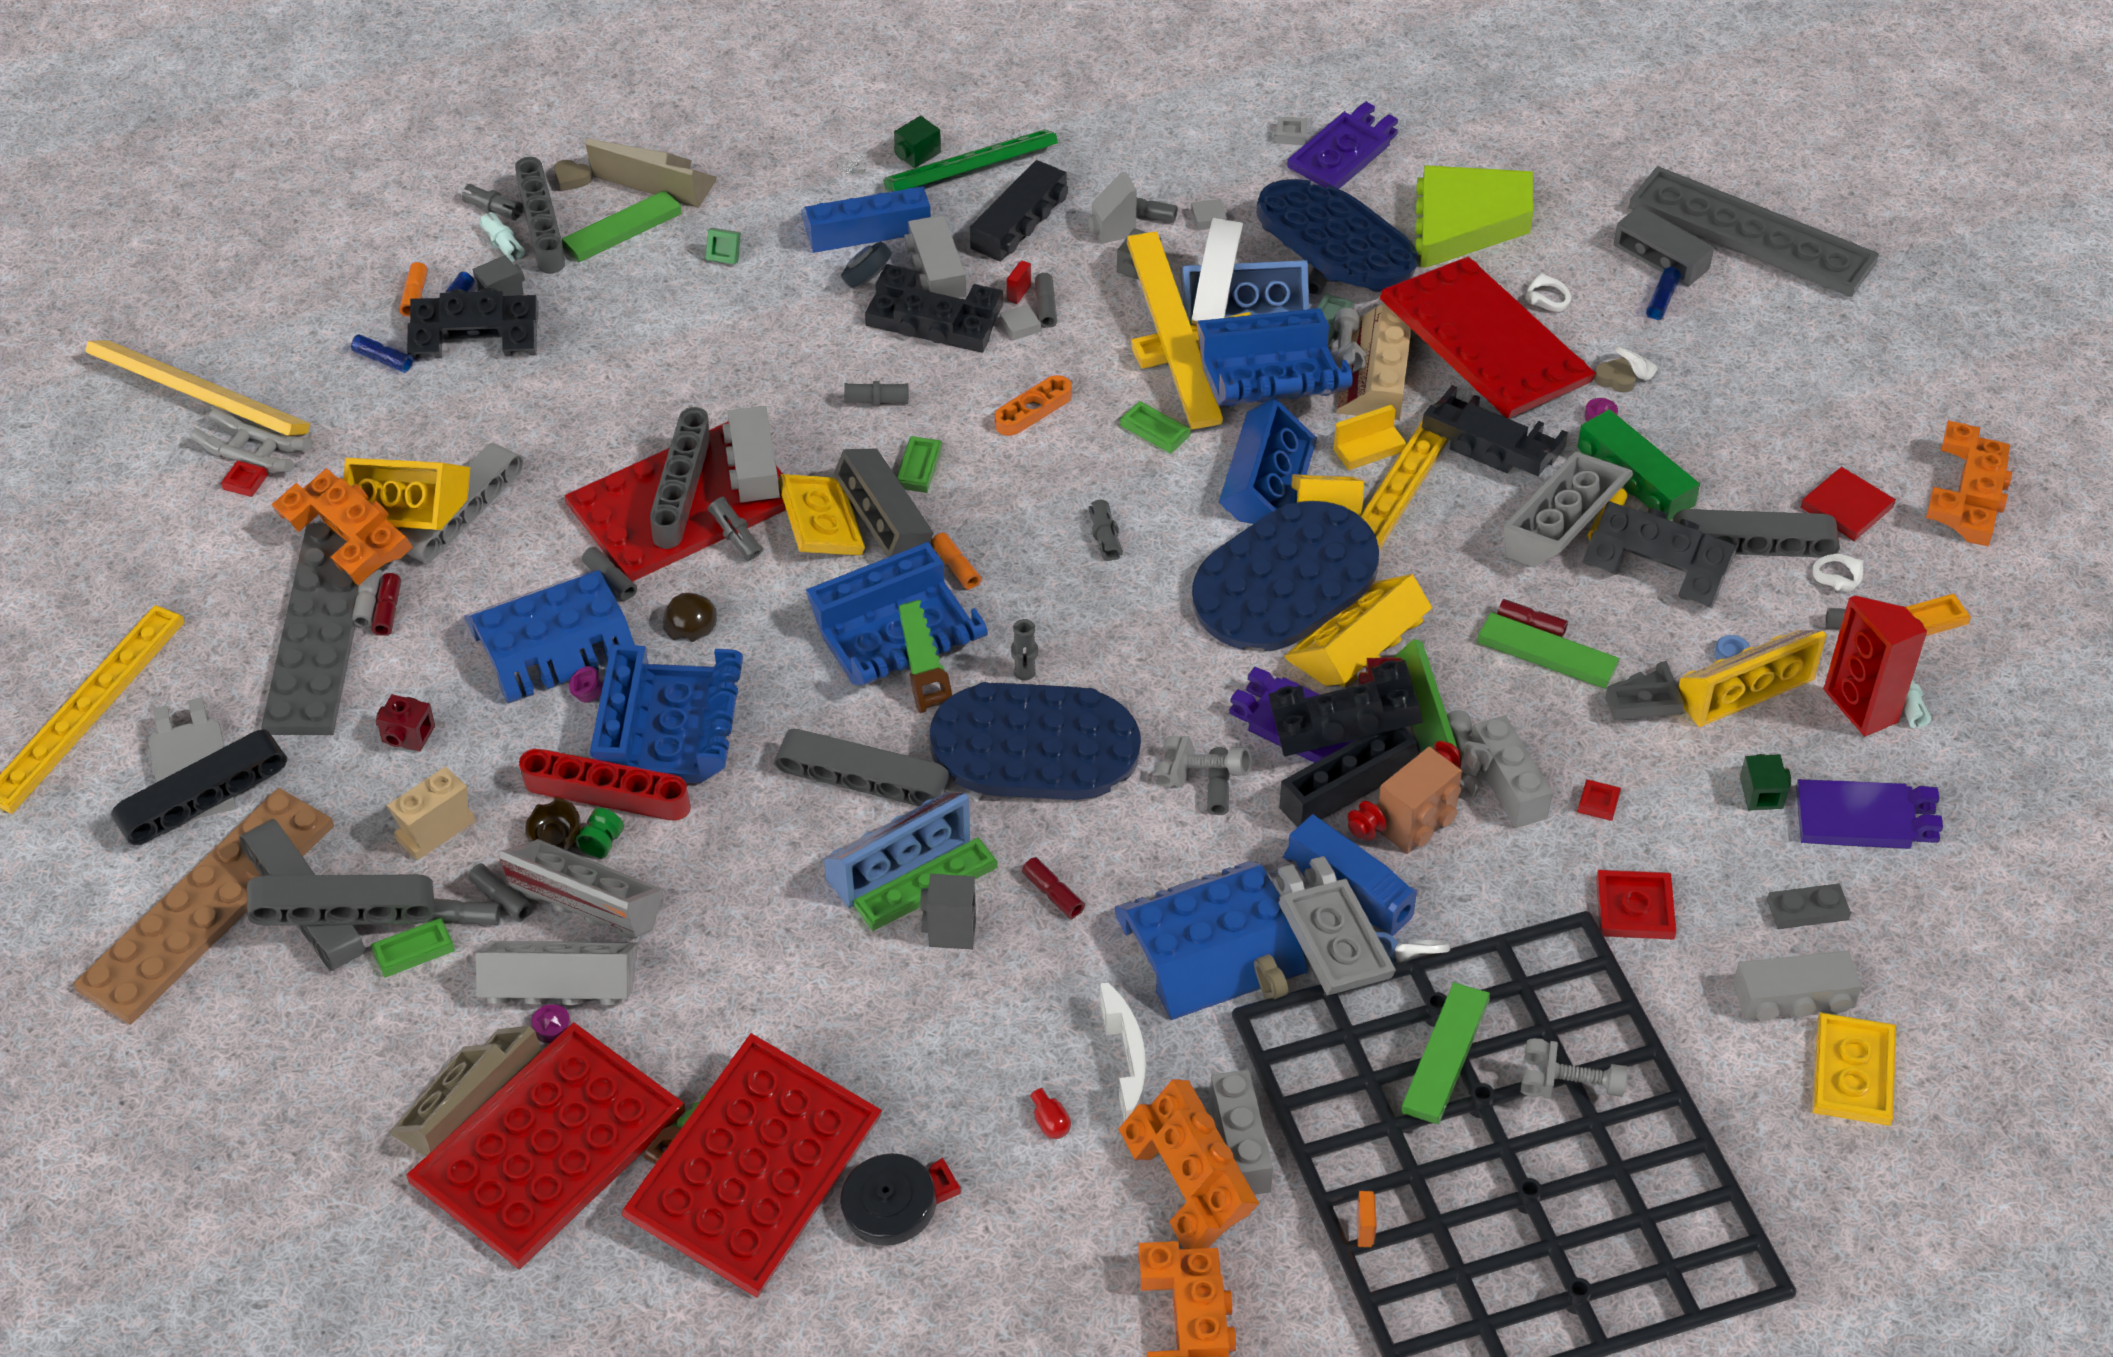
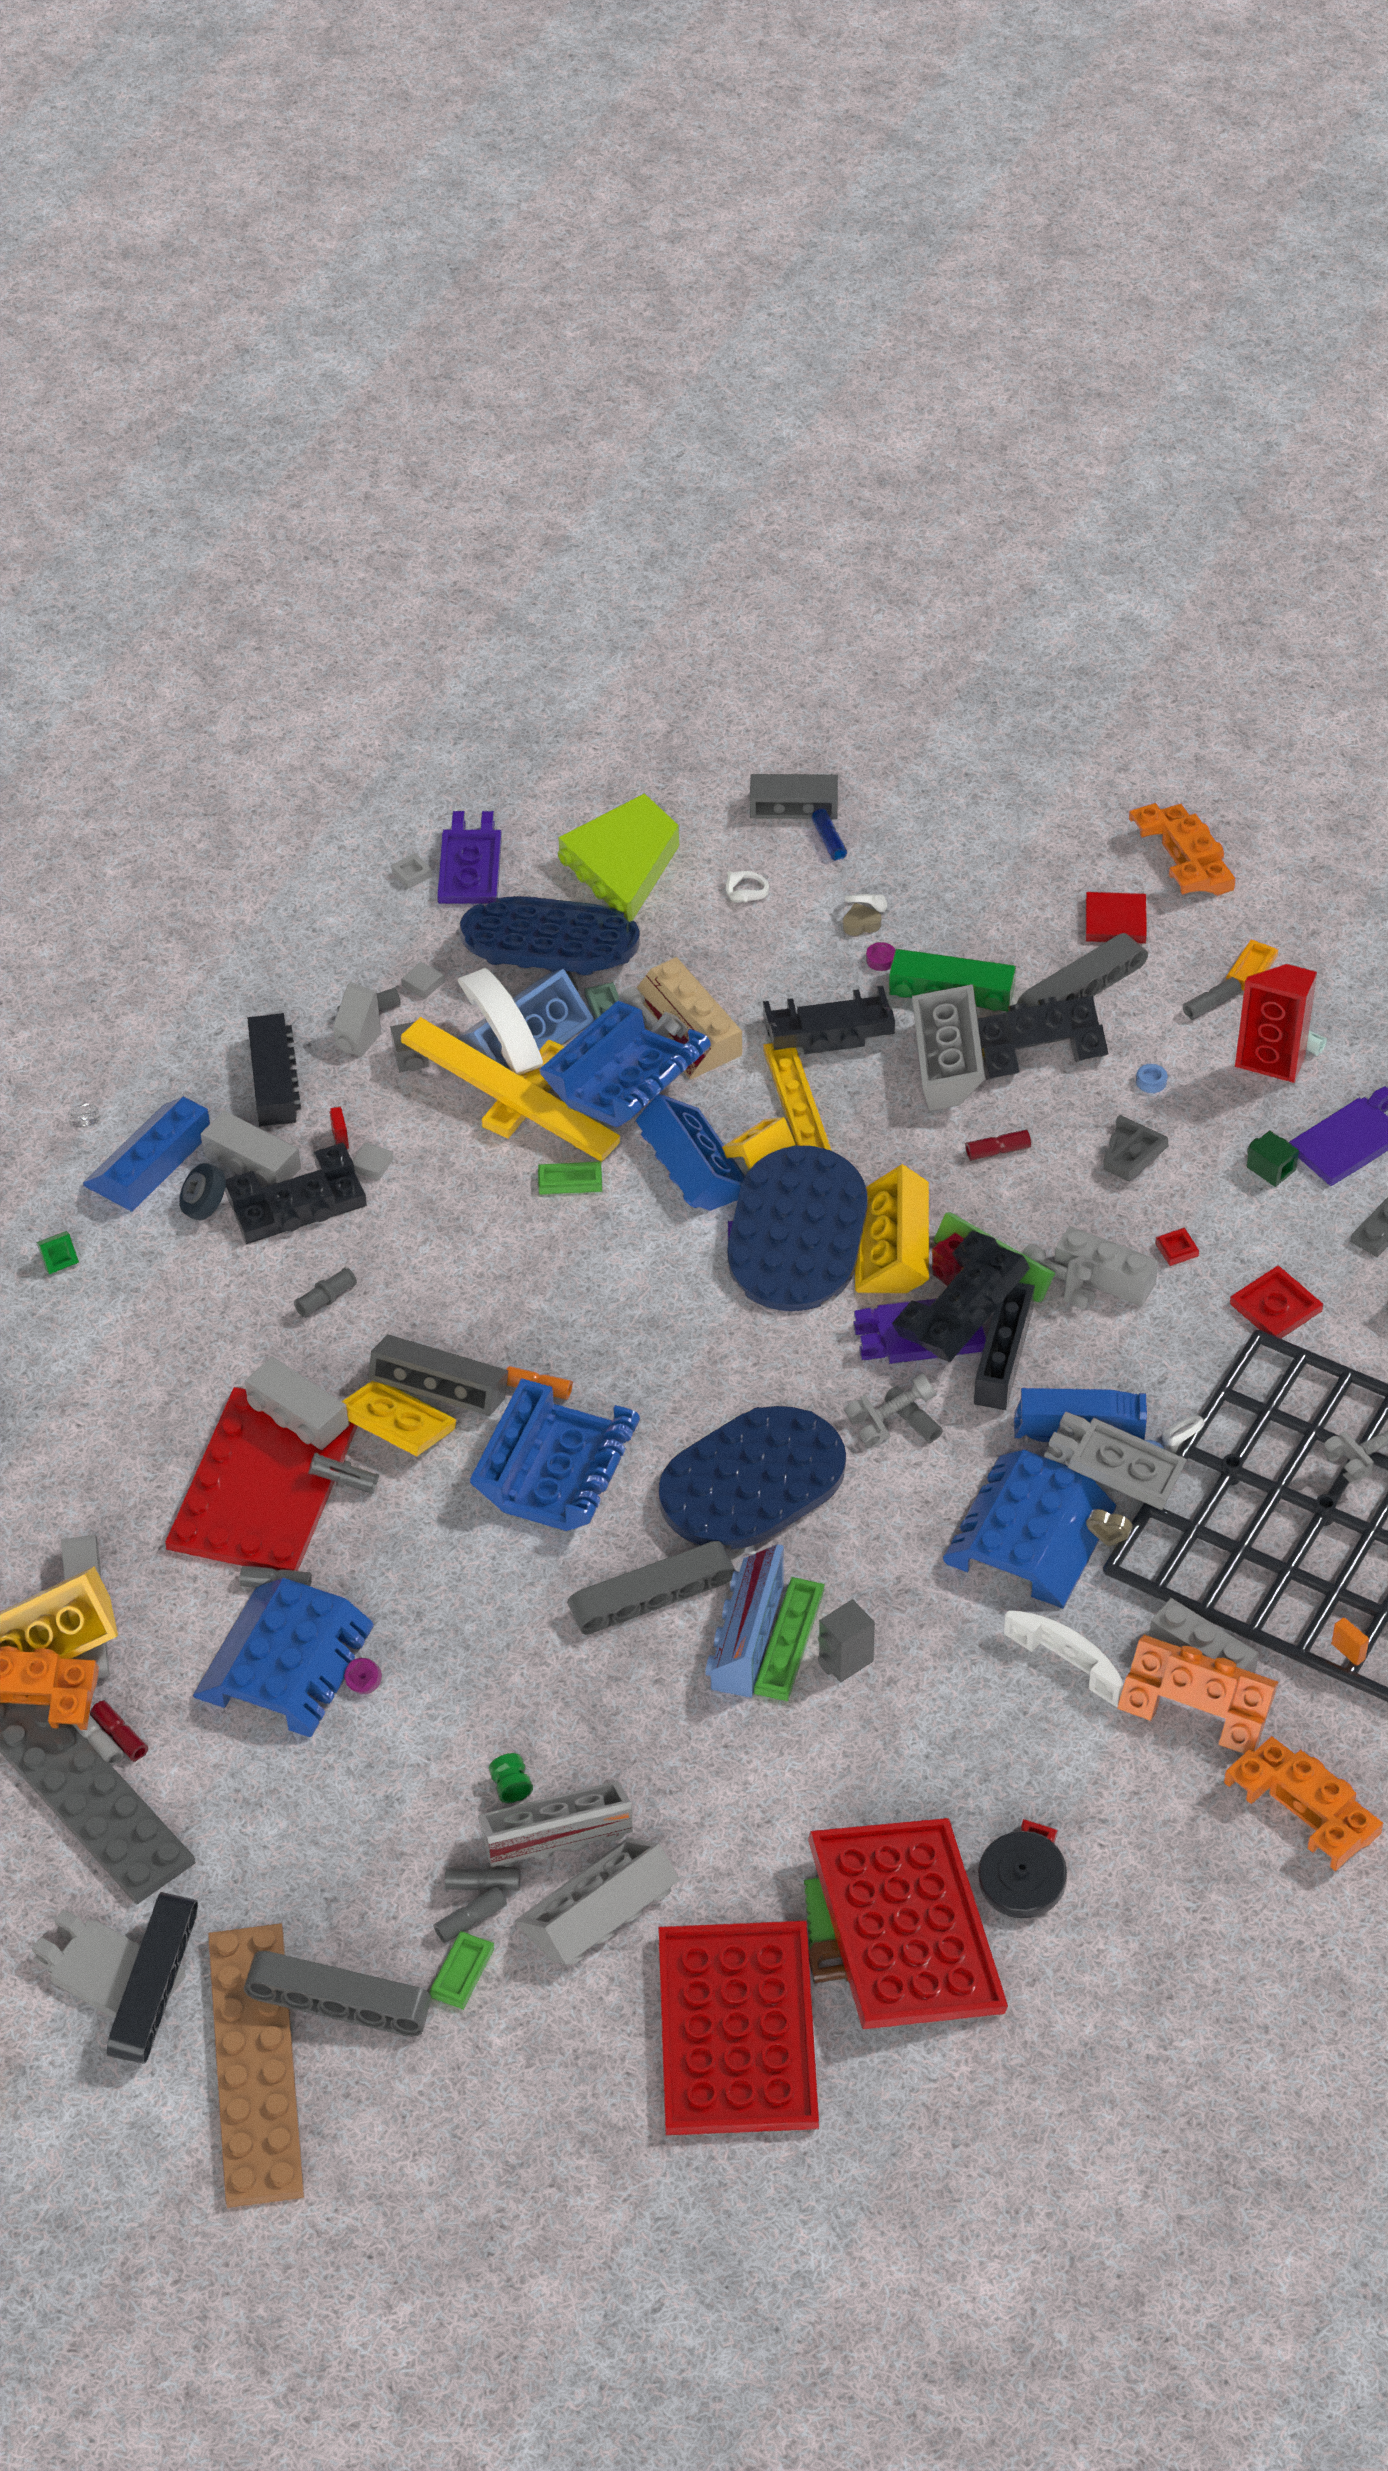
camera: 40 degrees left, 0 degrees up
(340, 899) = (388, 1970): dark grey beam -> none
(405, 722) = (257, 1807): dark red brick -> none
(431, 813) = (367, 1858): tan hips -> none
(465, 1086) = (630, 2036): dark tan slope -> none
(550, 1022) = (635, 1943): magenta tile -> none
(554, 823) = (470, 1795): dark brown hair -> none
(621, 780) = (463, 1753): red beam -> none
(666, 714) = (467, 1652): blue slope -> none
(680, 478) = (258, 1461): dark grey beam -> none
(689, 616) = (381, 1568): dark brown hair -> none
(917, 141) = (124, 1062): dark green brick -> none
(919, 463) = (420, 1324): bright green tile -> none
(922, 658) = (618, 1471): bright green piece -> none
(970, 160) = (182, 1053): green tile -> none
(1024, 637) = (680, 1412): dark grey pin -> none
(1038, 394) = (453, 1211): orange beam -> none
(1045, 296) = (371, 1129): dark grey piece -> none
(1050, 1115) = (1062, 1734): red cylinder -> none
(1056, 891) = (889, 1575): dark red piece -> none
(1105, 530) = (624, 1282): dark grey pin -> none
(1367, 438) = (742, 1085): yellow panel -> none
(1413, 800) = (1073, 1329): nougat brick -> none
(1445, 1053) = (1279, 1492): bright green tile -> none
(1487, 336) = (750, 946): red plate -> none
(1548, 650) = (1031, 1161): bright green tile -> none
(1751, 676) = (1188, 1084): yellow slope -> none
(1756, 231) = (842, 744): dark grey plate -> none
(1837, 581) = (1167, 980): white piece -> none

